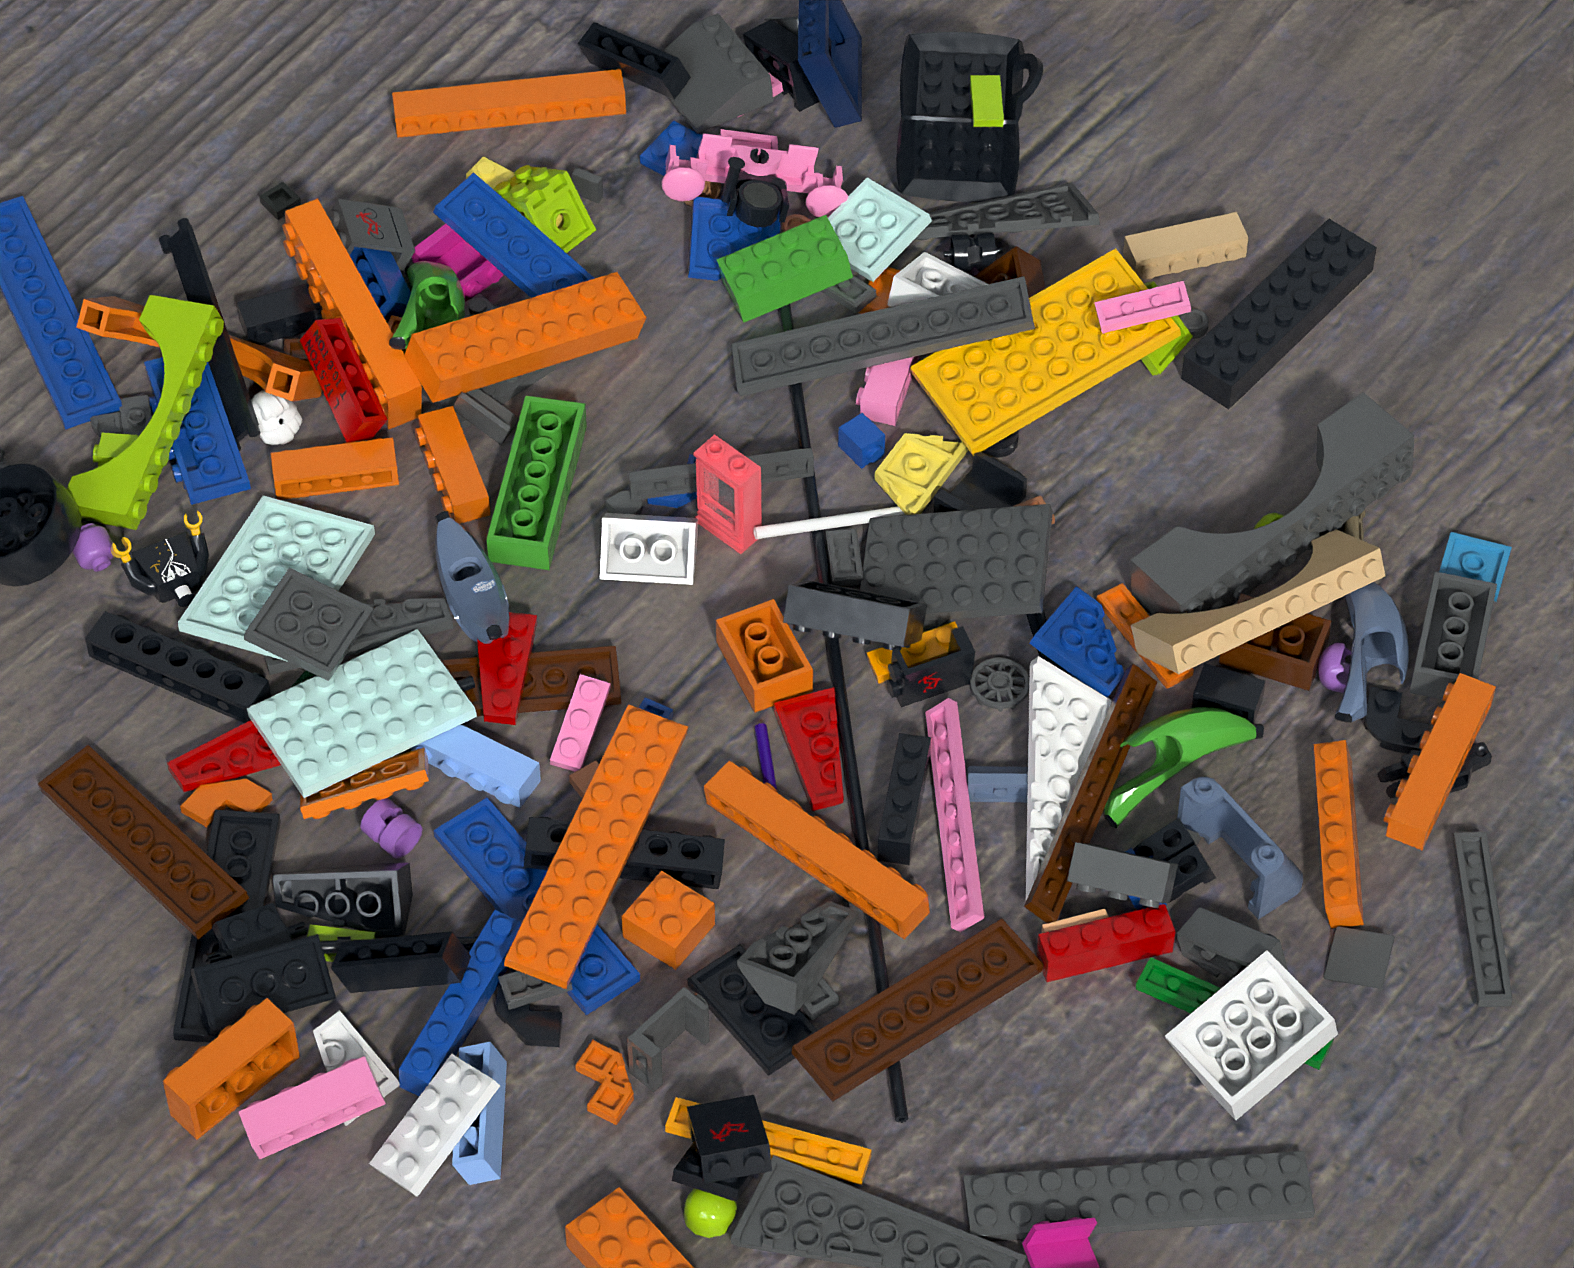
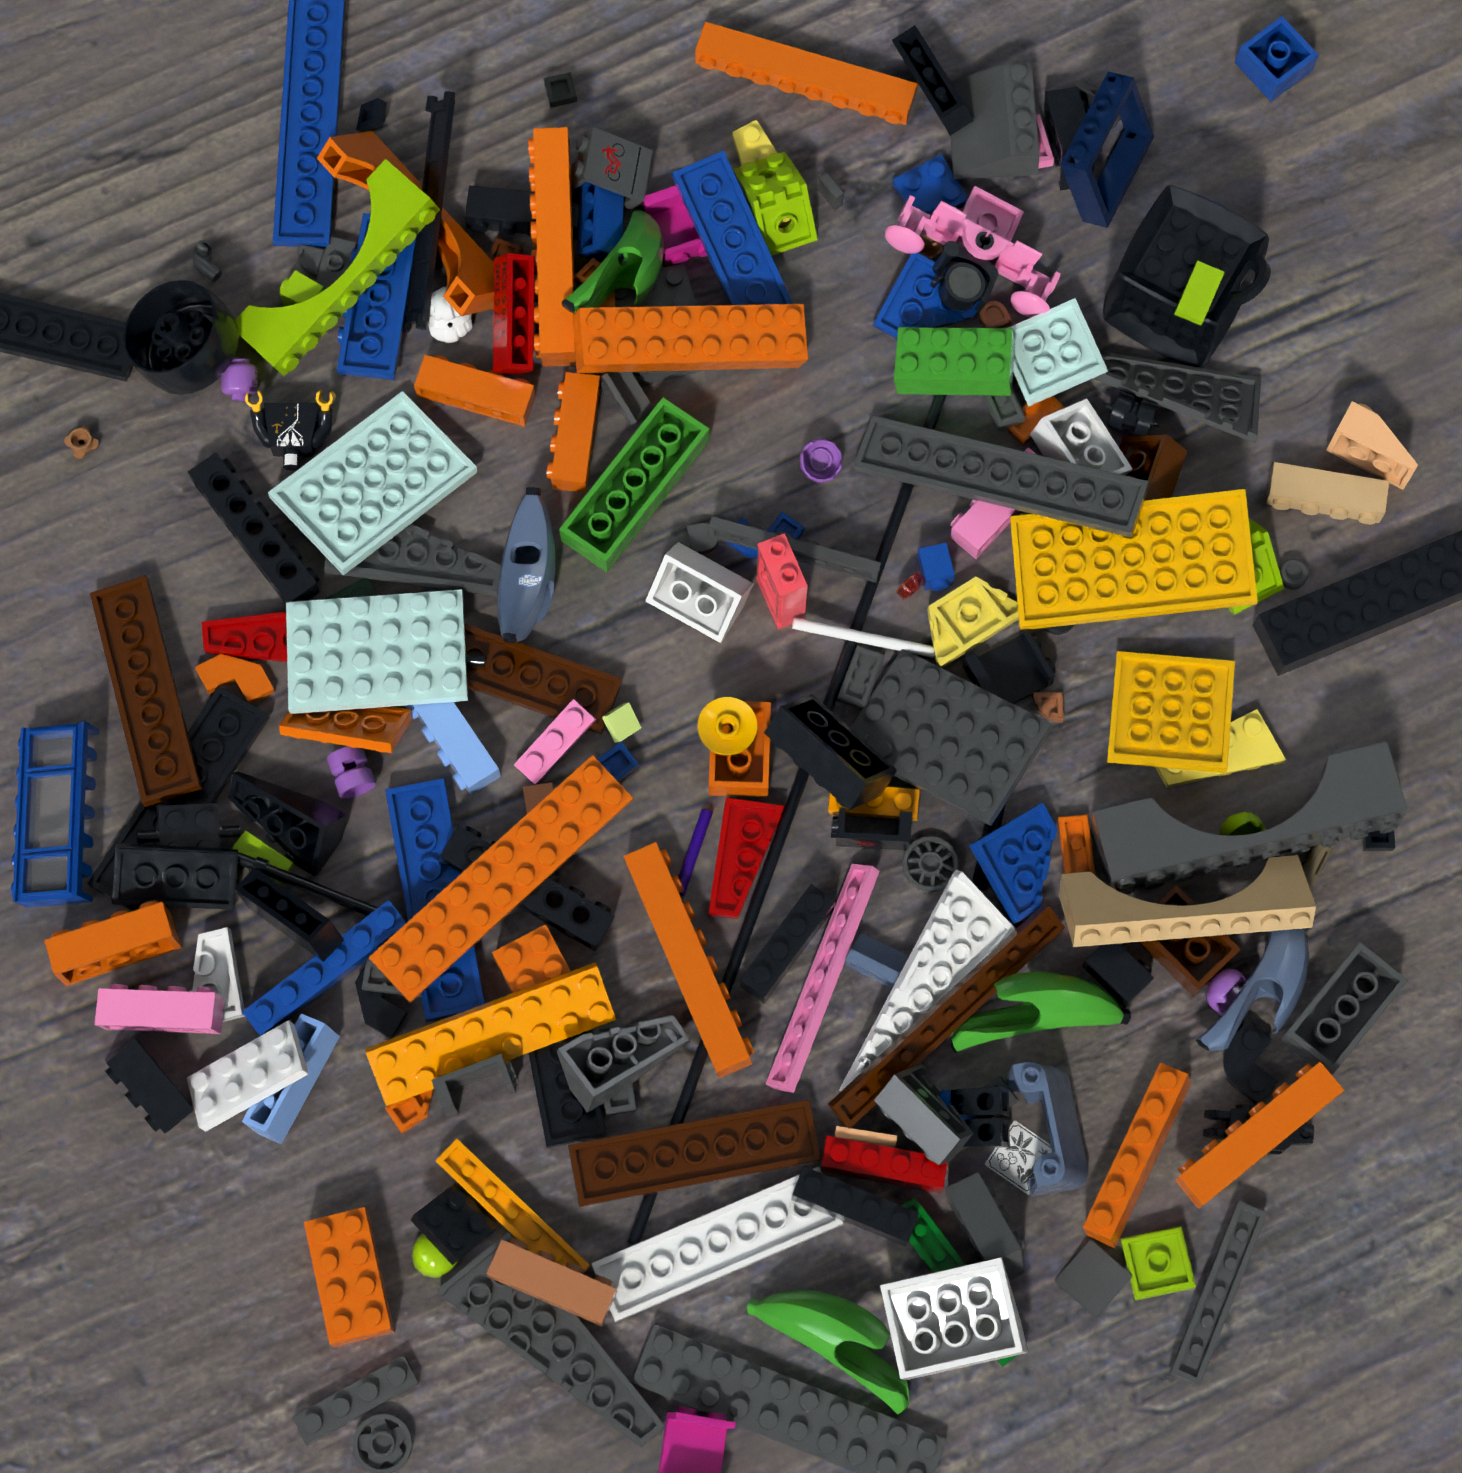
camera: 25 degrees right, 20 degrees up
(106, 283) = (371, 115): none -> black plate
(107, 986) = (52, 815): none -> window
(308, 624) = (368, 549): dark grey plate -> none
(334, 1179) = (147, 1086): none -> black wedge
(505, 669) = (517, 662): red wing -> none
(636, 682) = (621, 722): none -> yellowish green tile
(689, 957) = (502, 1026): none -> light orange plate
(703, 397) = (820, 460): none -> medium lavender hair
(729, 1138) = (470, 1209): black panel -> none
(745, 618) = (727, 712): none -> yellow dish
(844, 1173) = (551, 1282): none -> nougat brick
(847, 465) = (910, 586): none -> clear red tile
(983, 1082) = (710, 1247): none -> white plate
(1101, 981) = (854, 1206): none -> black brick
(1131, 1096) = (838, 1333): none -> bright green piece
(1142, 307) = (1234, 565): bright pink plate -> none
(1151, 467) = (1171, 712): none -> yellow plate
(1204, 190) = (1372, 446): none -> light nougat slope
(1215, 485) = (1249, 748): none -> light yellow wing
(1229, 890) = (1017, 1162): none -> white sticker
(1400, 496) = (1379, 841): none -> black plate
(1412, 917) = (1158, 1263): none -> lime plate
(1476, 559) = (1405, 940): dark azure plate -> none

